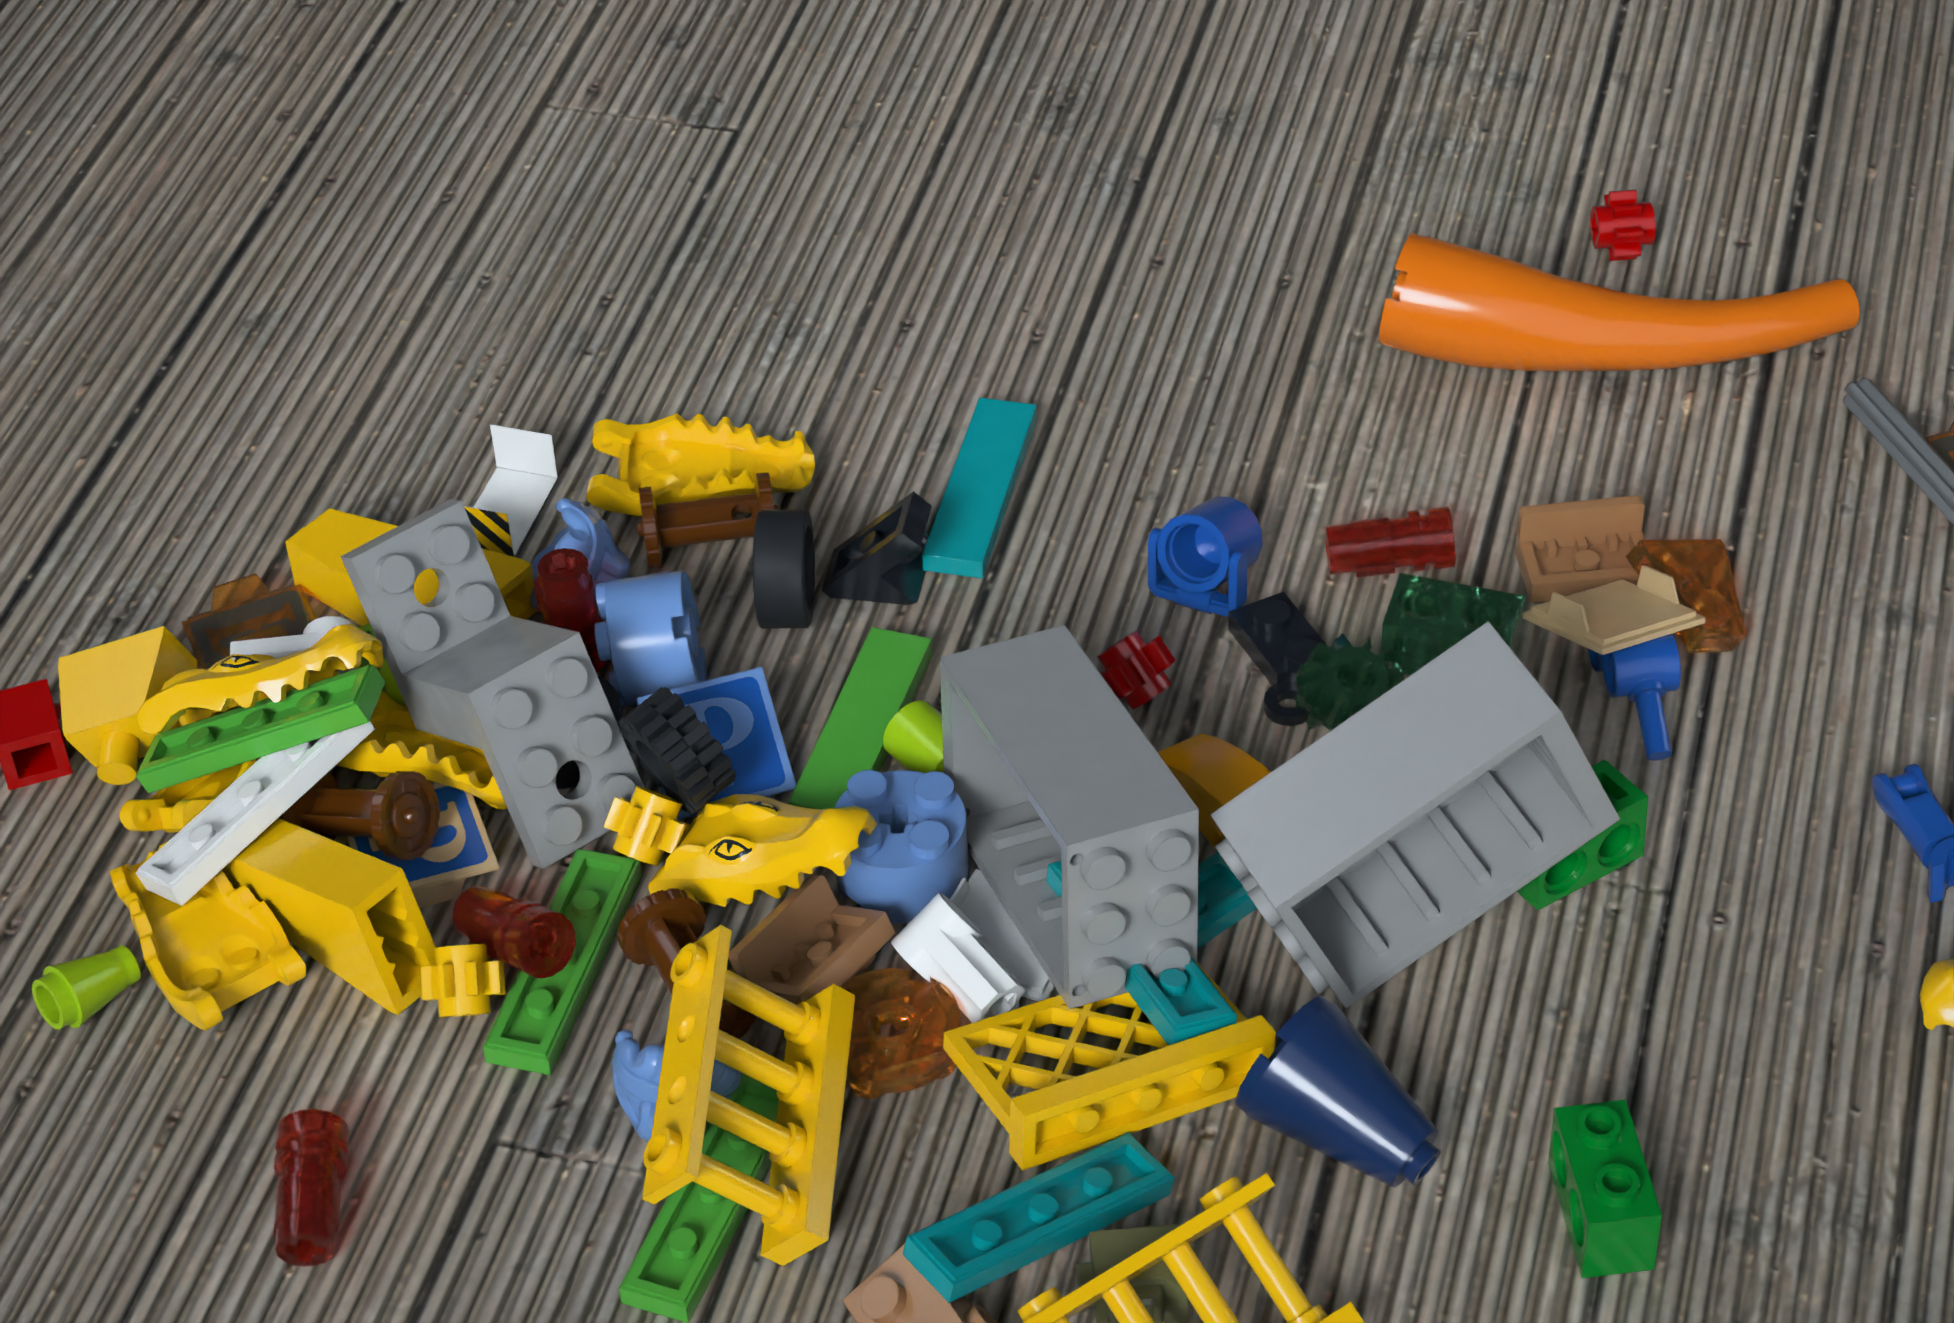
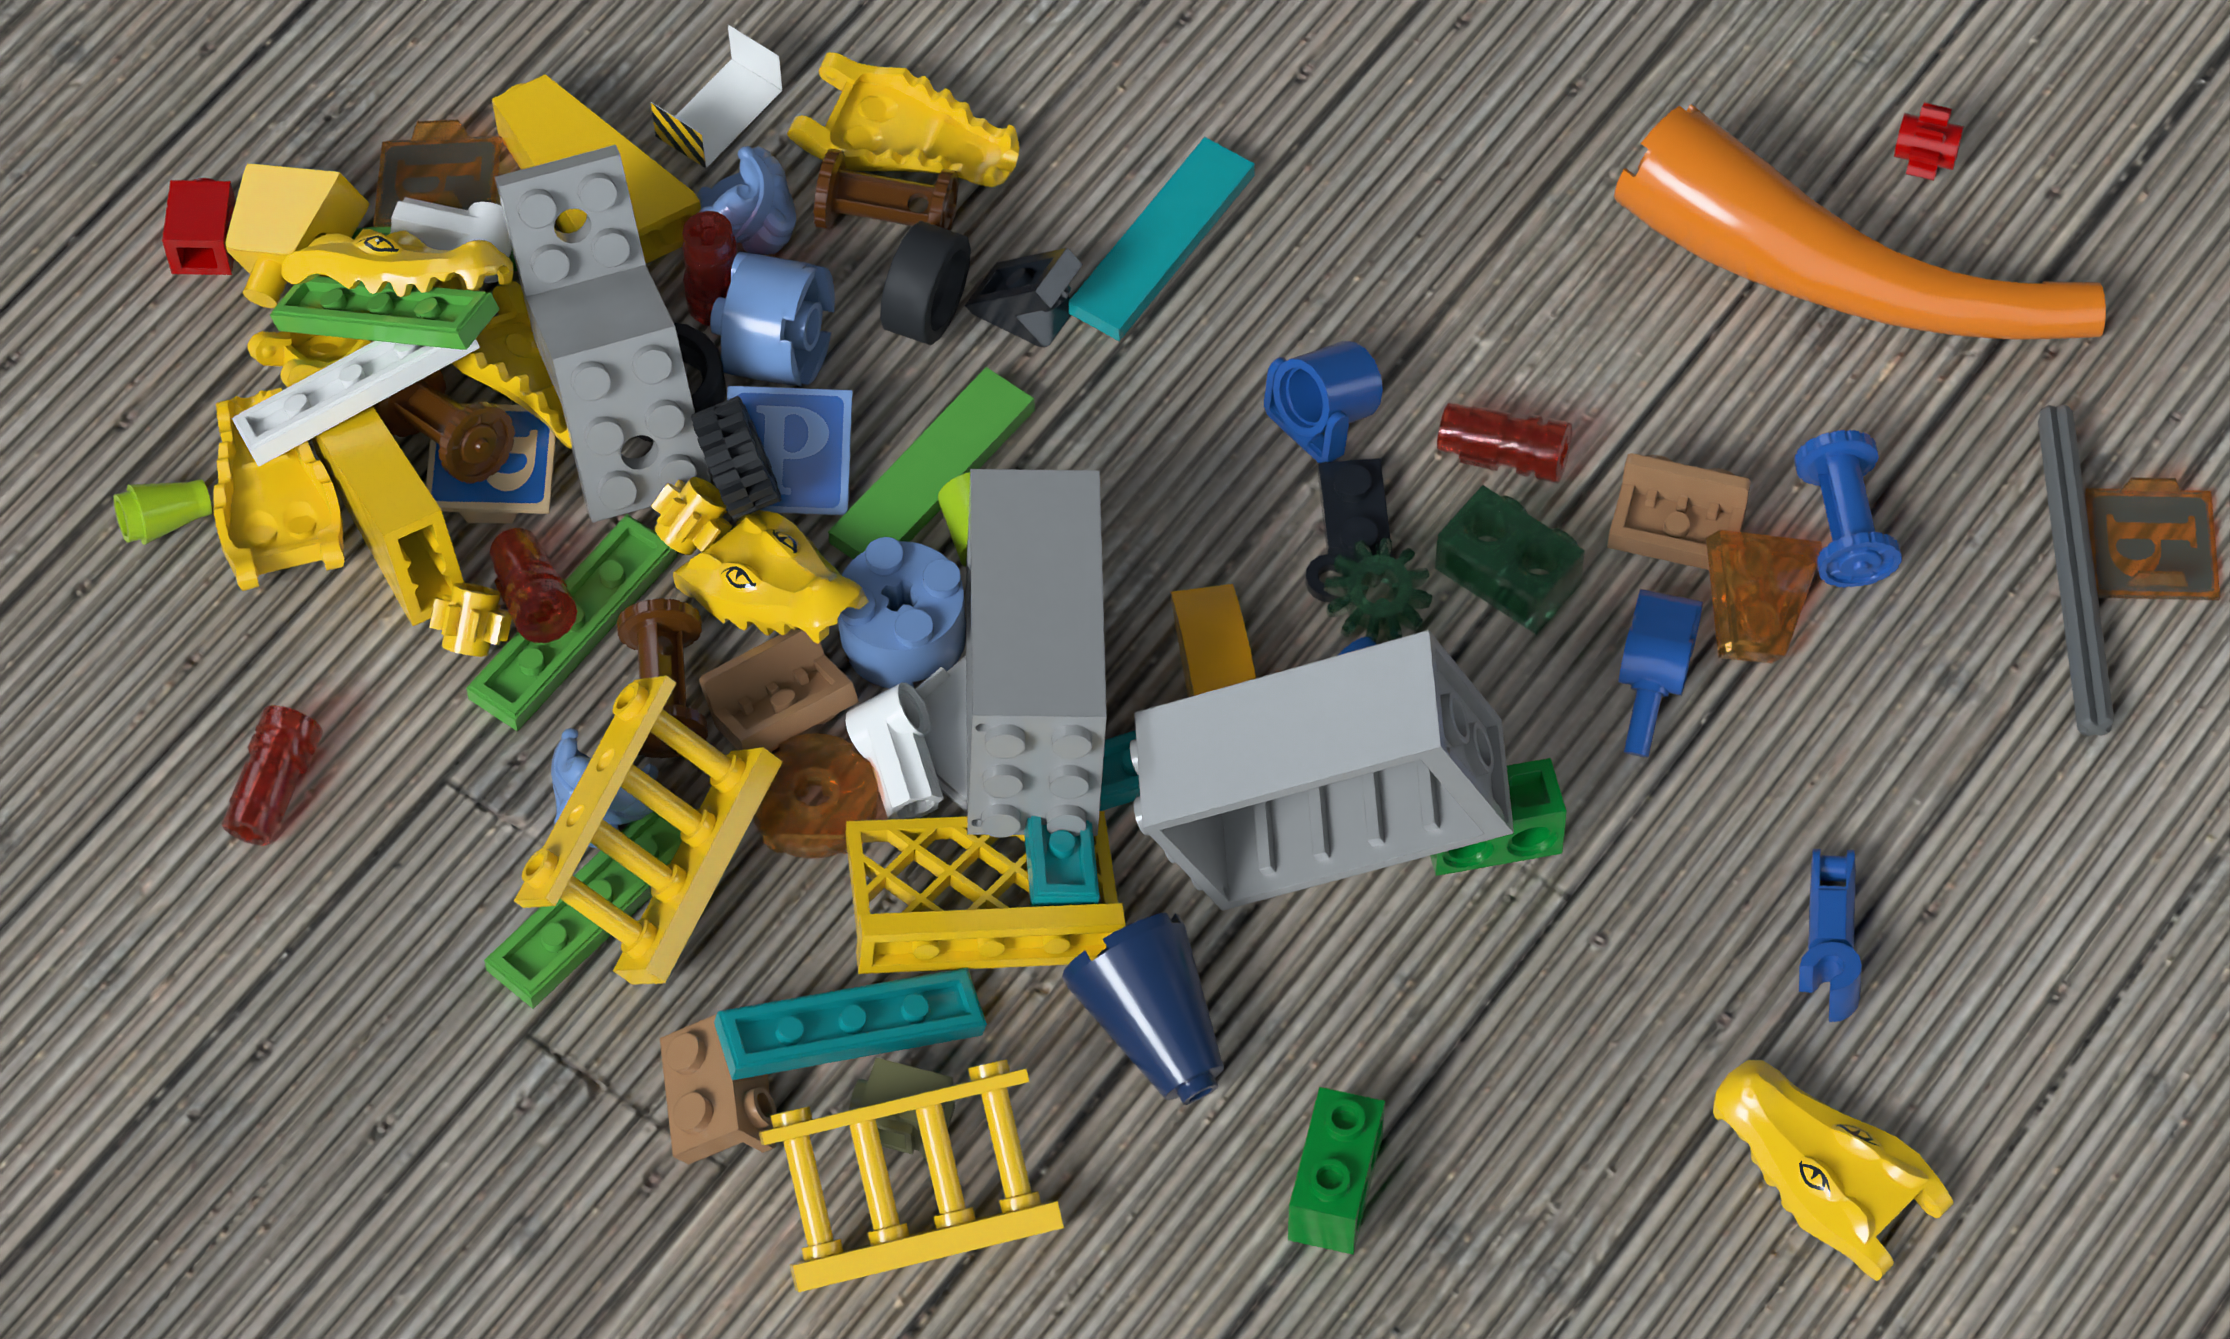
camera: 20 degrees right, 15 degrees up
(1136, 668) = (1196, 500): red gear -> none
(1617, 613) = (1656, 601): tan piece -> none
(1761, 532) = (1838, 465): none -> blue hose

